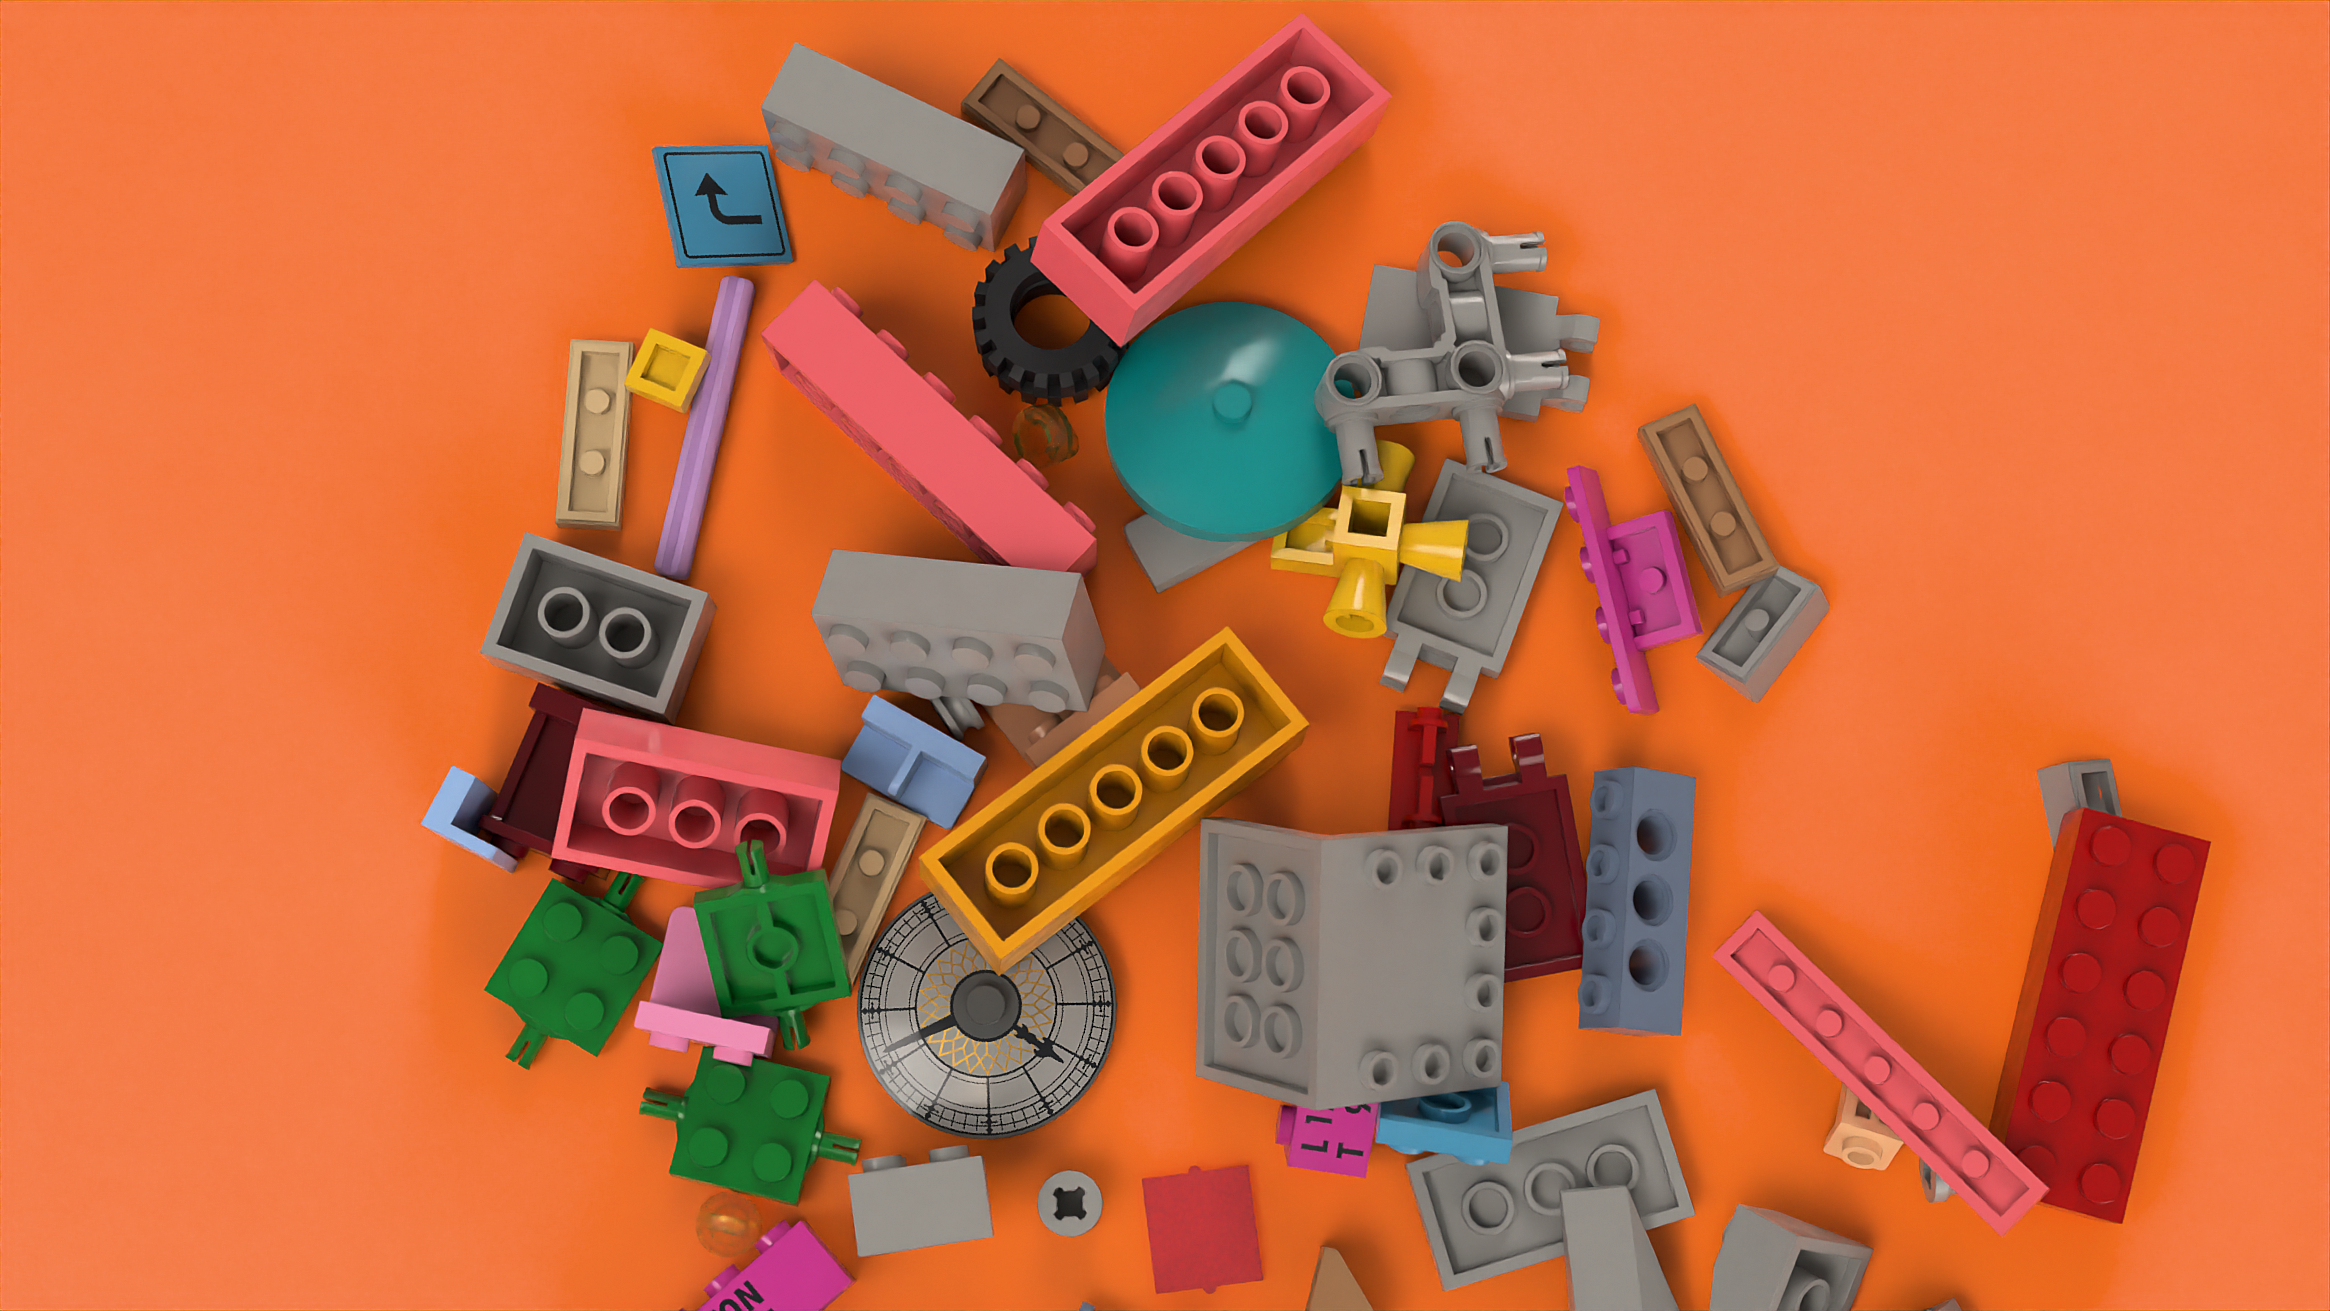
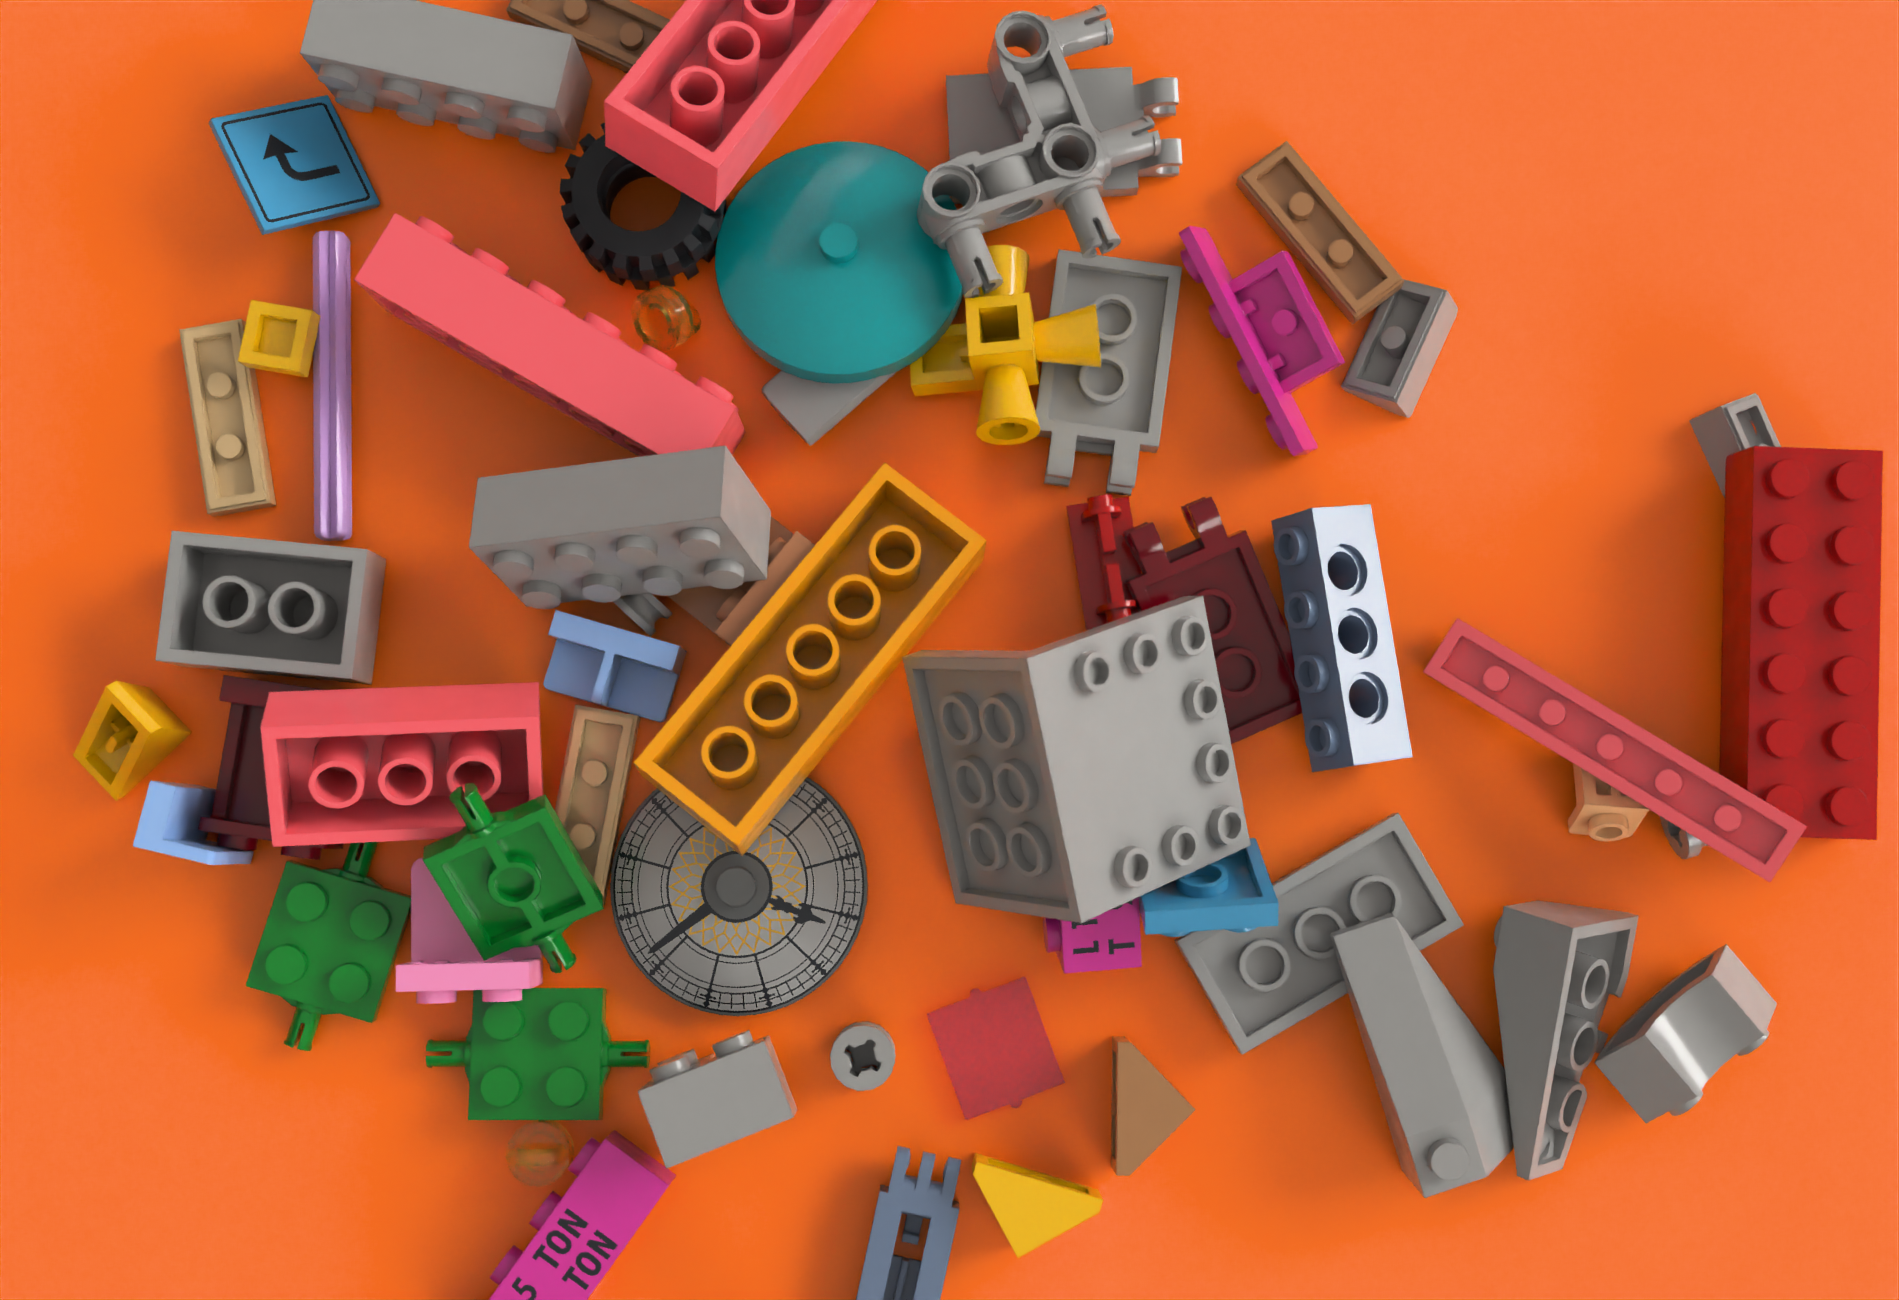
camera: 15 degrees left, 5 degrees up
(425, 723) = (128, 737): none -> yellow slope

